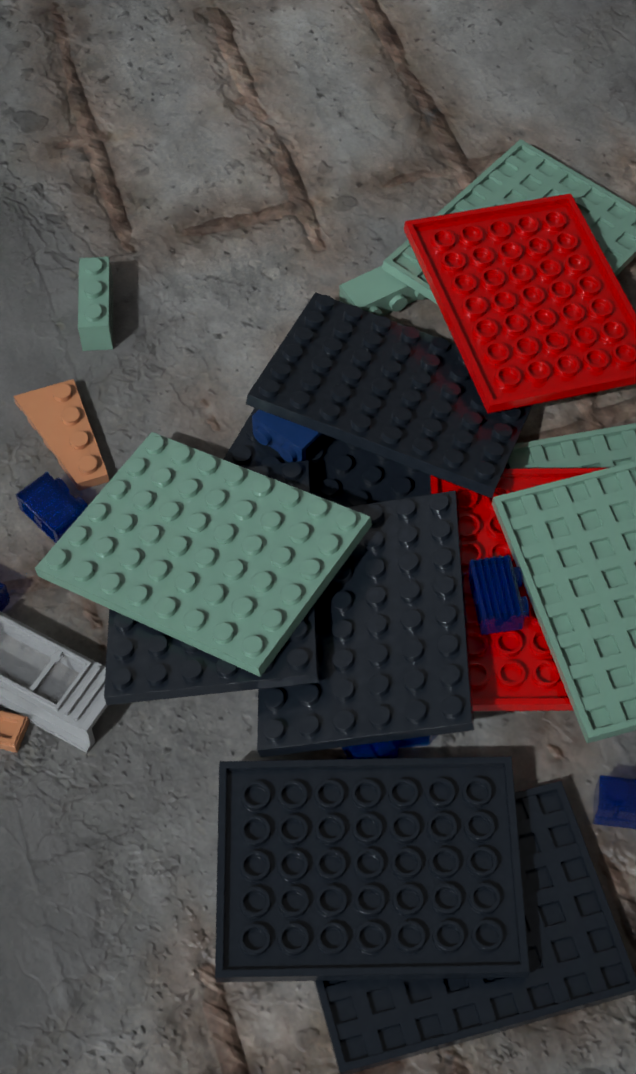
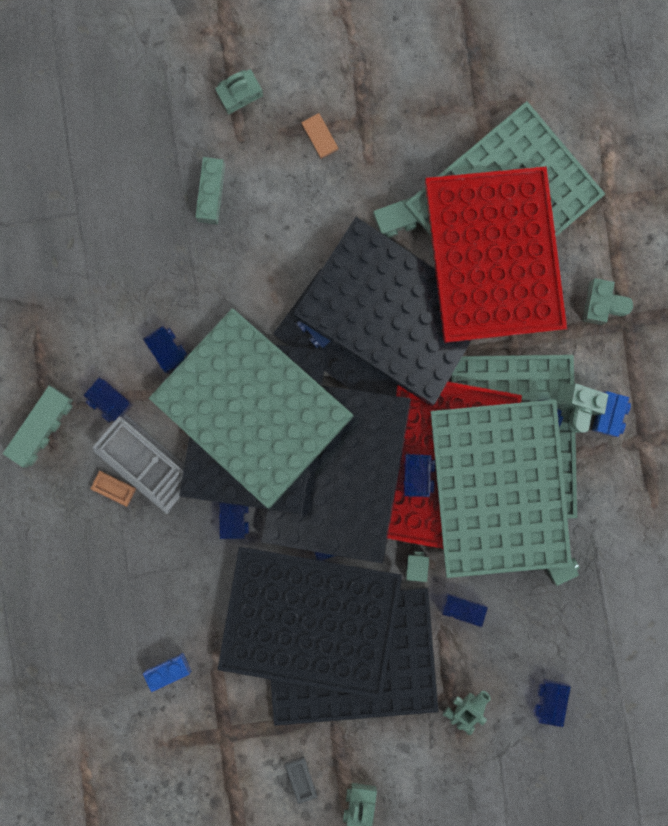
camera: 10 degrees right, 30 degrees up
(66, 431) = (178, 282): nougat wing -> none
(119, 189) = (238, 91): none -> sand green brick
(122, 1010) = (167, 672): none -> blue brick
(201, 731) = (232, 521): none -> clear blue brick
(243, 225) = (319, 136): none -> nougat tile
(533, 752) = (417, 566): none -> sand green brick

